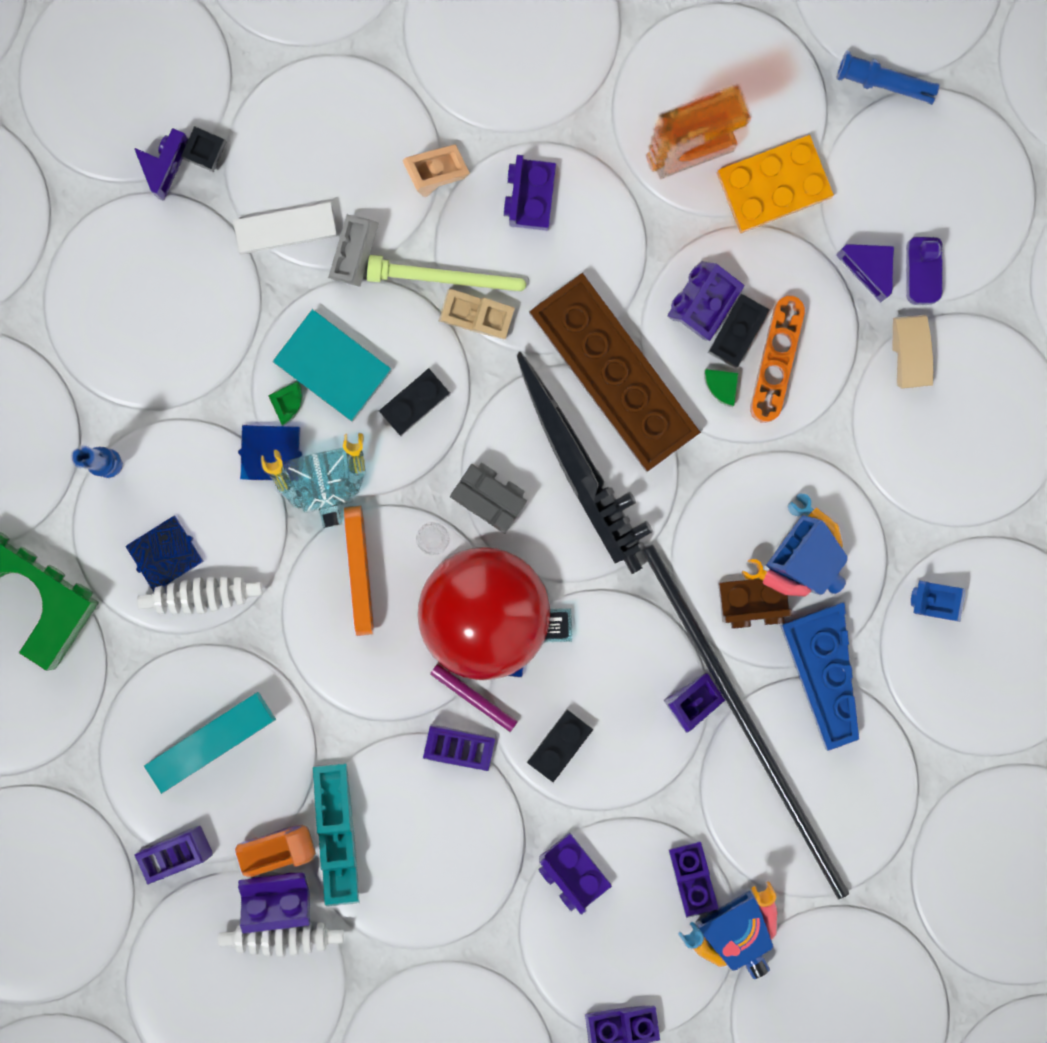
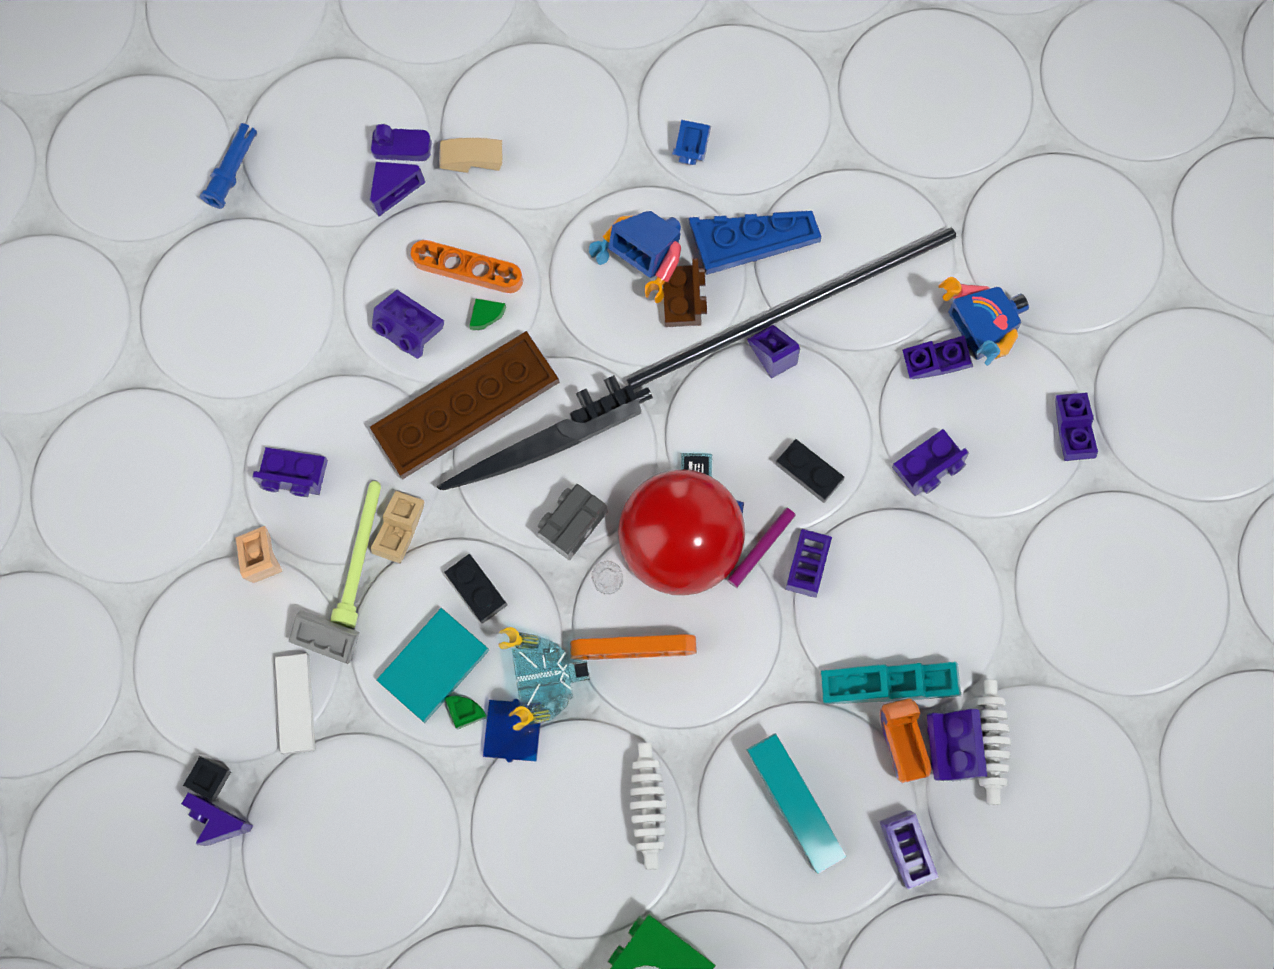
camera: 75 degrees left, 15 degrees down
(99, 461) = (505, 896): blue pin -> none
(164, 553) = (604, 843): clear blue piece -> none
(697, 132) = (251, 309): clear orange arch -> none
(738, 331) = (438, 296): black plate -> none
(775, 184) = (309, 262): light orange plate -> none

